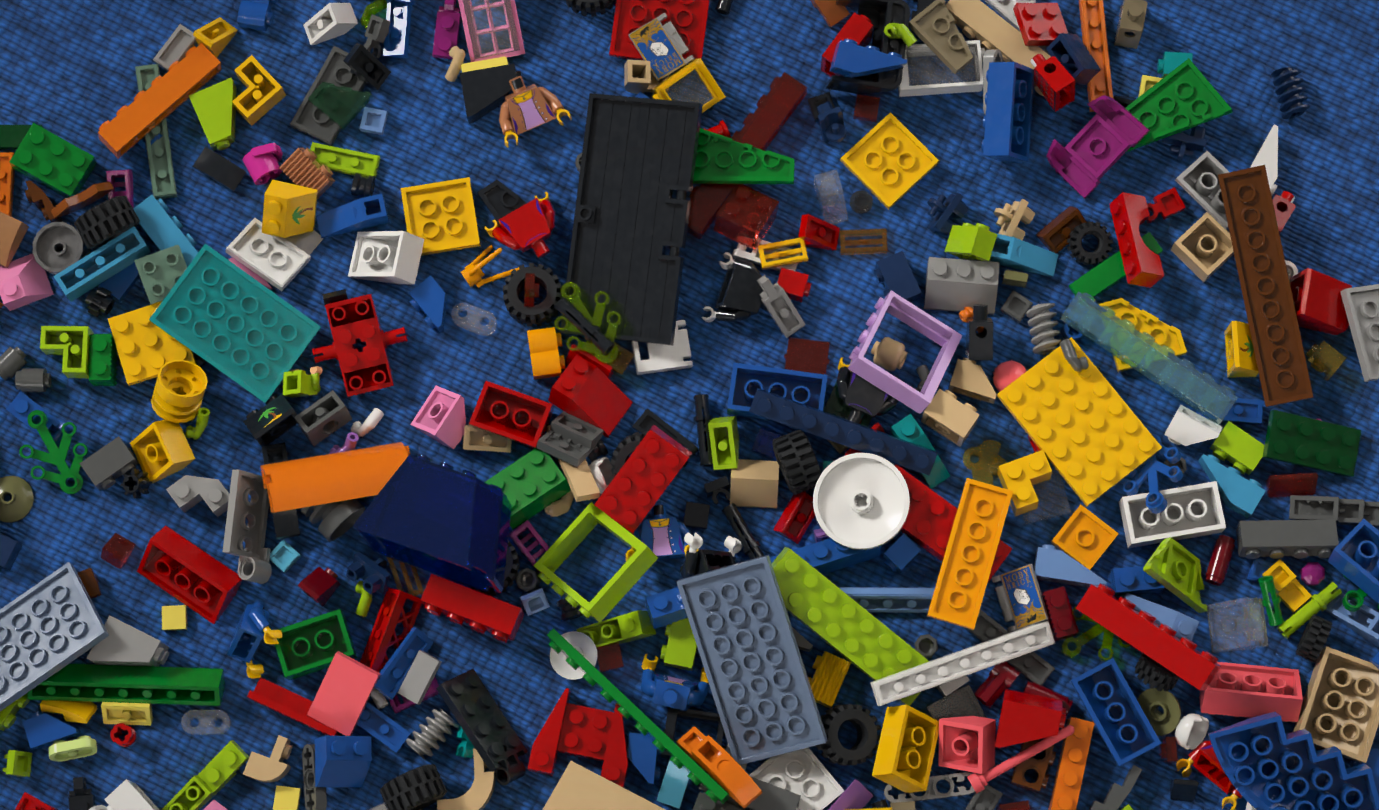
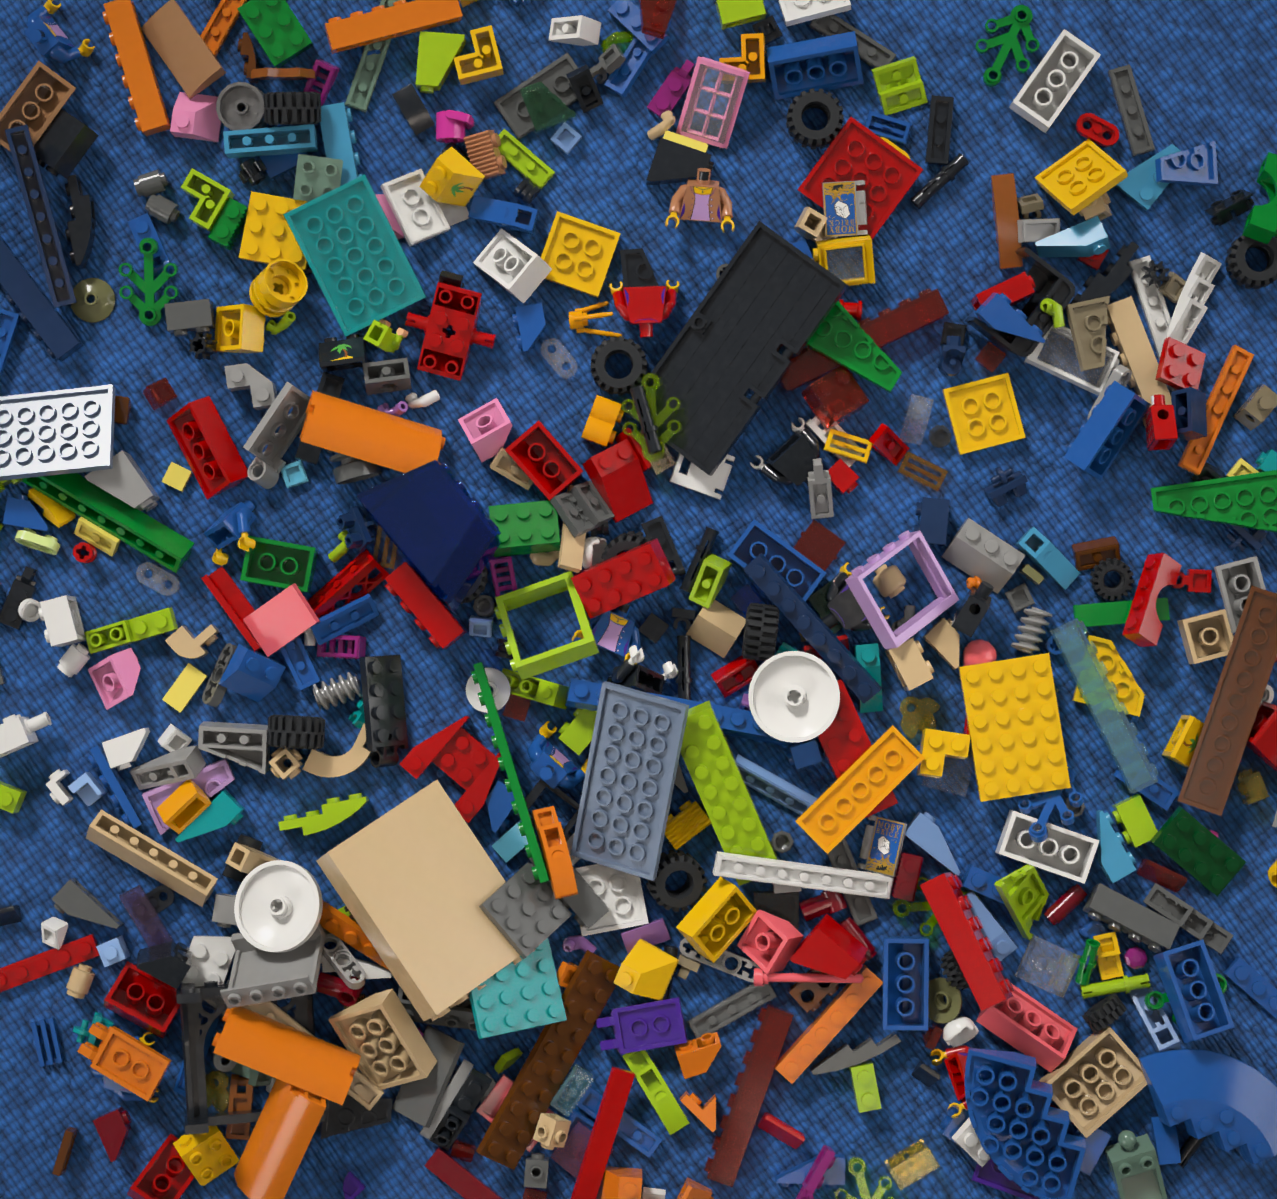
camera: 25 degrees right, 10 degrees up
(320, 585) = (310, 517): dark red slope -> none
(419, 677) = (351, 639): light grey tile -> none
(531, 290) = (618, 363): clear red plate -> none
(971, 242) = (1012, 524): lime brick -> none
(1011, 216) = (1056, 521): tan hips -> none
(1070, 355) = (1038, 671): dark grey arm -> none
(1084, 537) = (964, 824): light orange plate -> none
(1096, 145) = (1166, 499): magenta piece -> none
(1191, 428) = (1105, 783): white slope -> none

